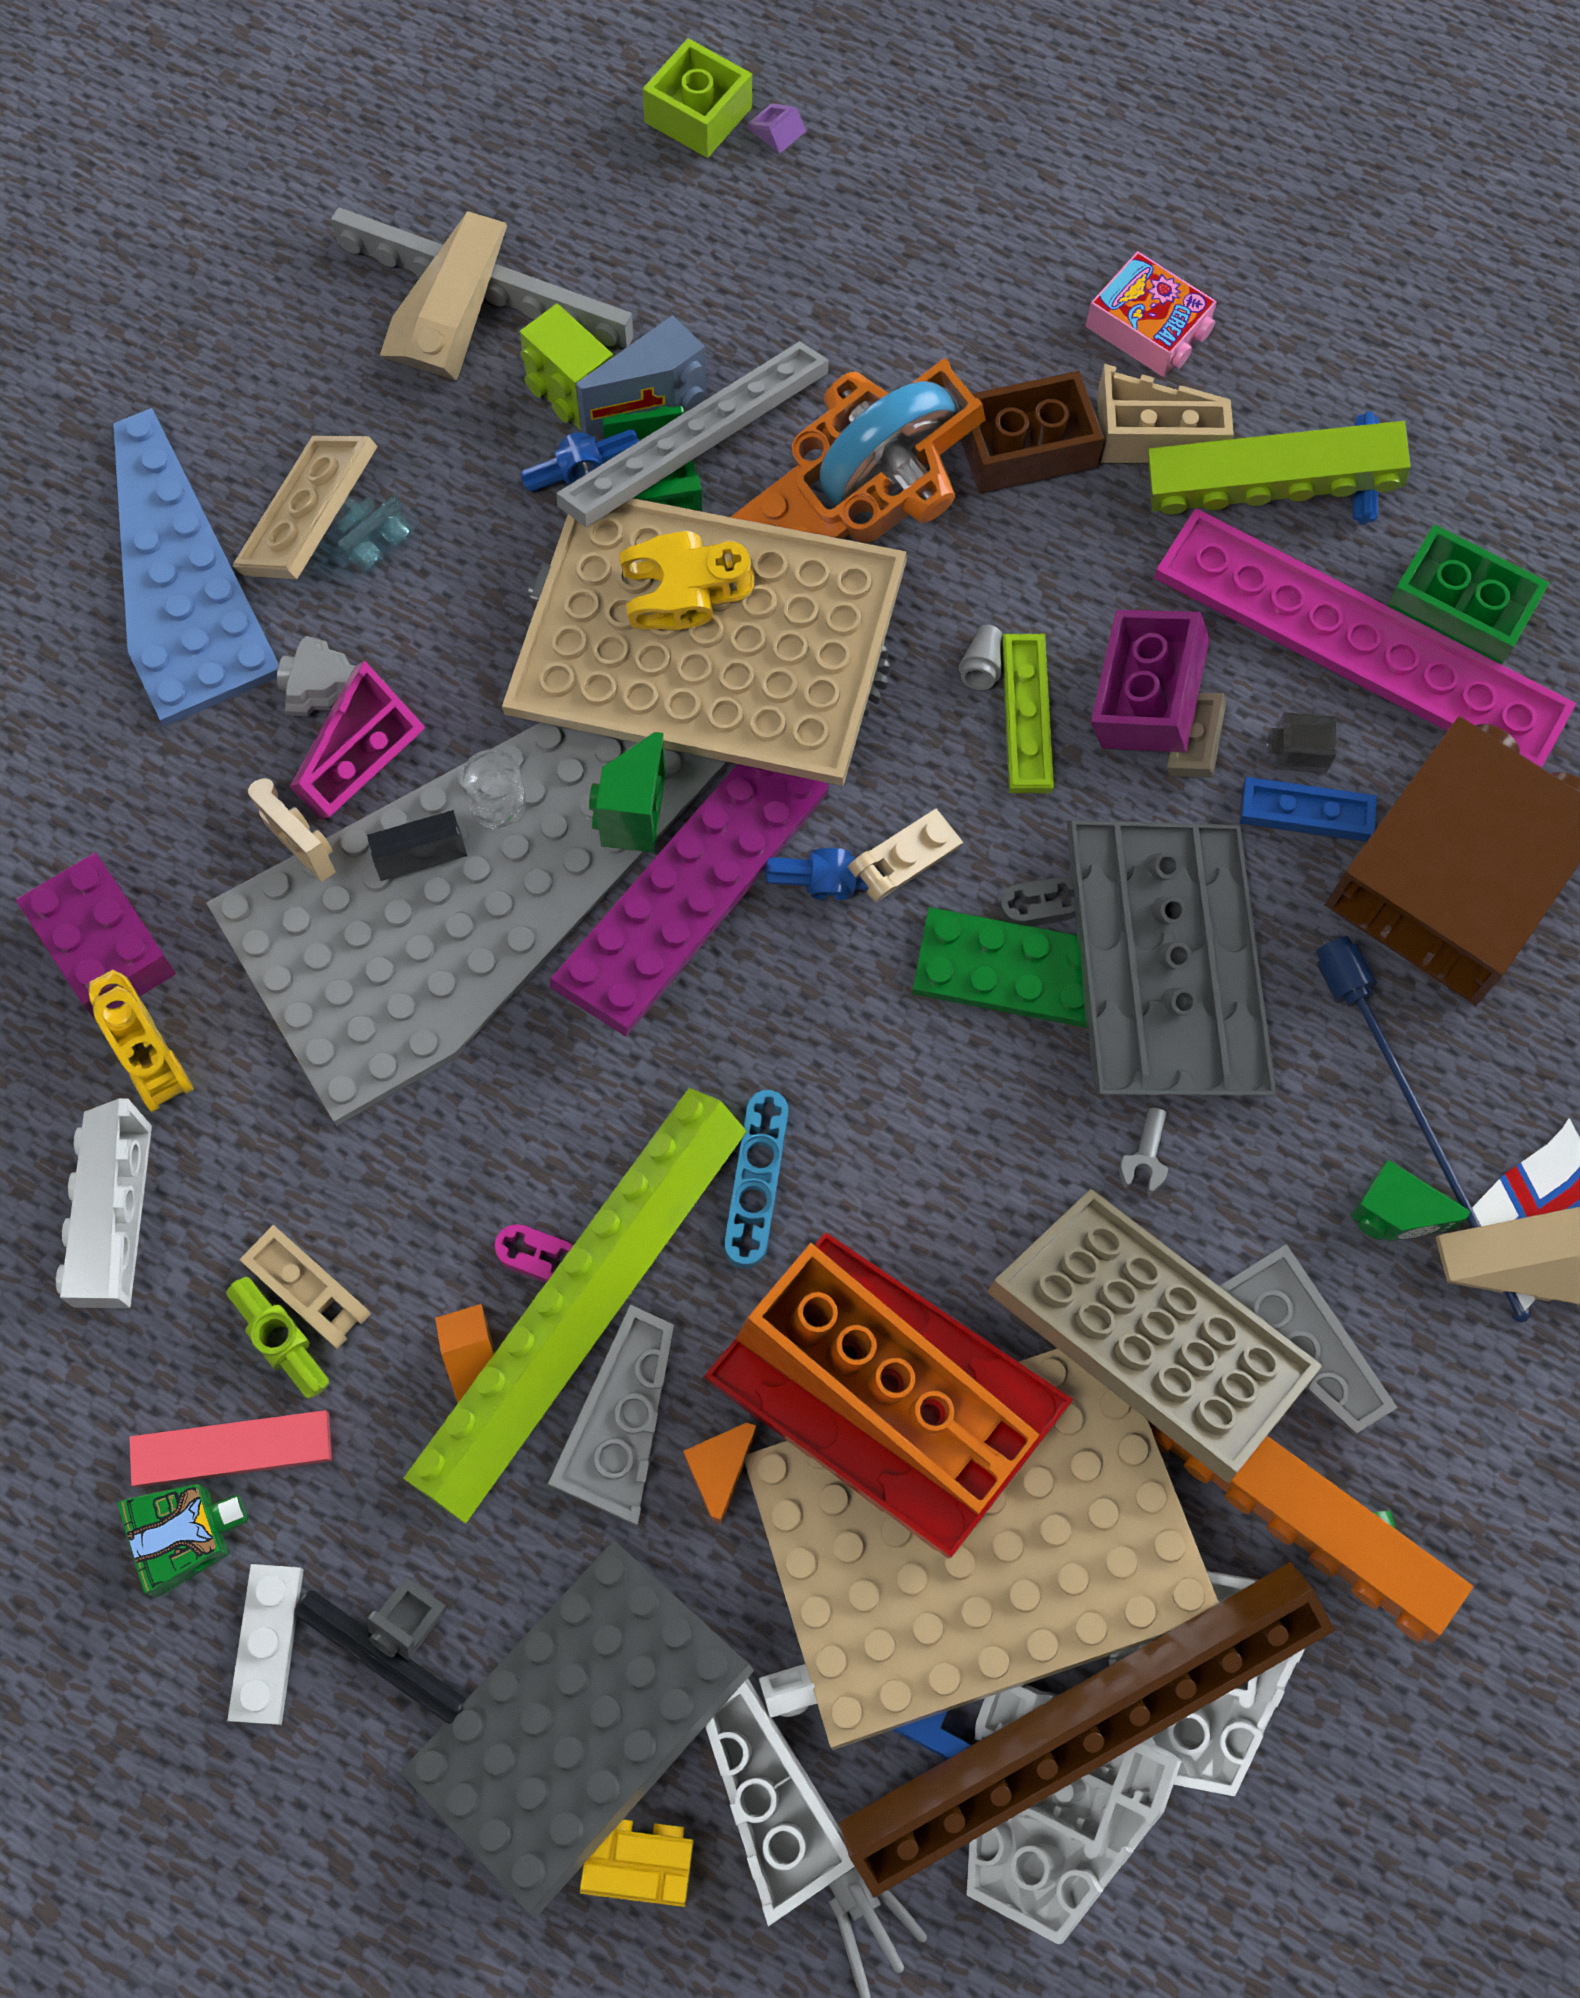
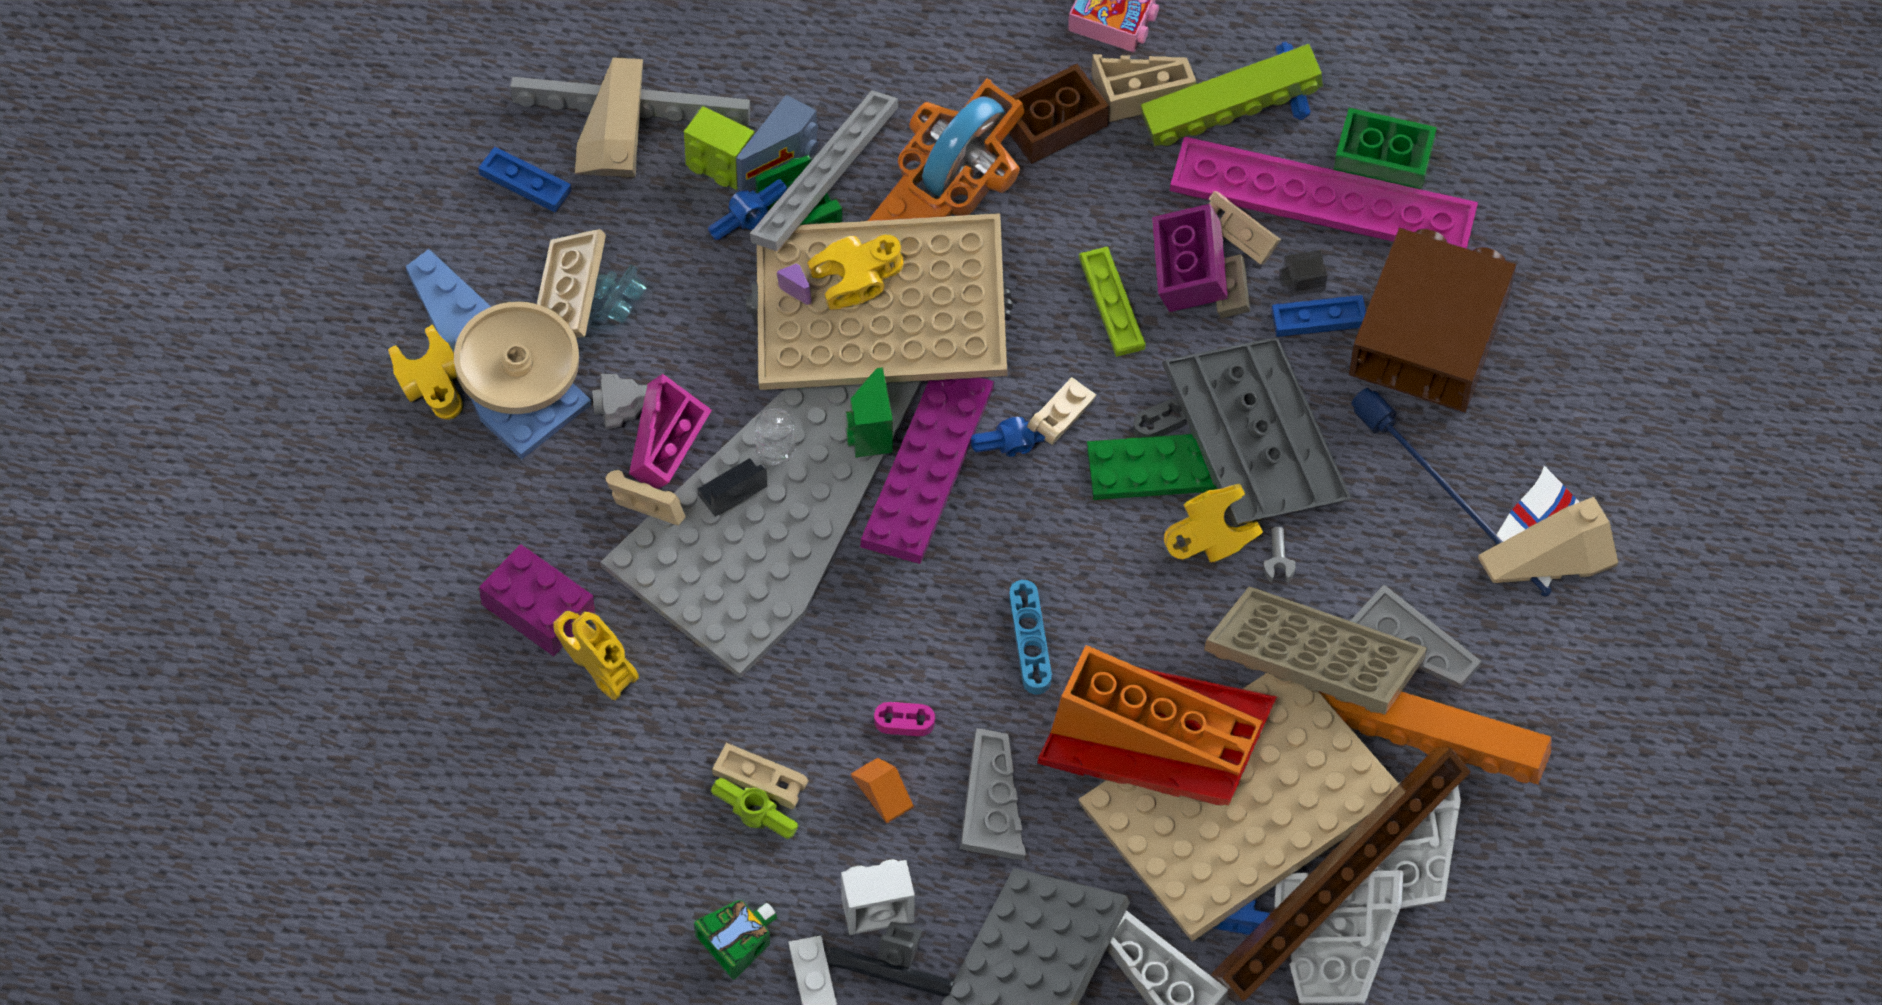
camera: 15 degrees left, 10 degrees down
(82, 580) = (430, 376): none -> yellow piece
(105, 1207) = (611, 759): white wedge -> none
(190, 585) = (516, 357): none -> tan dish
(230, 1449) = (749, 881): coral tile -> none
(310, 347) = (524, 179): none -> blue plate
(391, 1538) = (877, 896): none -> white brick
(575, 1305) = (944, 730): lime brick -> none
(594, 576) = (794, 283): none -> medium lavender slope
(717, 1467) = (1062, 808): orange slope -> none
(788, 1691) = (1157, 919): white plate -> none
(982, 661) = (1070, 273): light grey cone -> none
(1055, 1088) = (1207, 529): none -> yellow piece
(1238, 659) = (1244, 230): none -> tan plate
(1404, 1207) = (1453, 544): green slope -> none

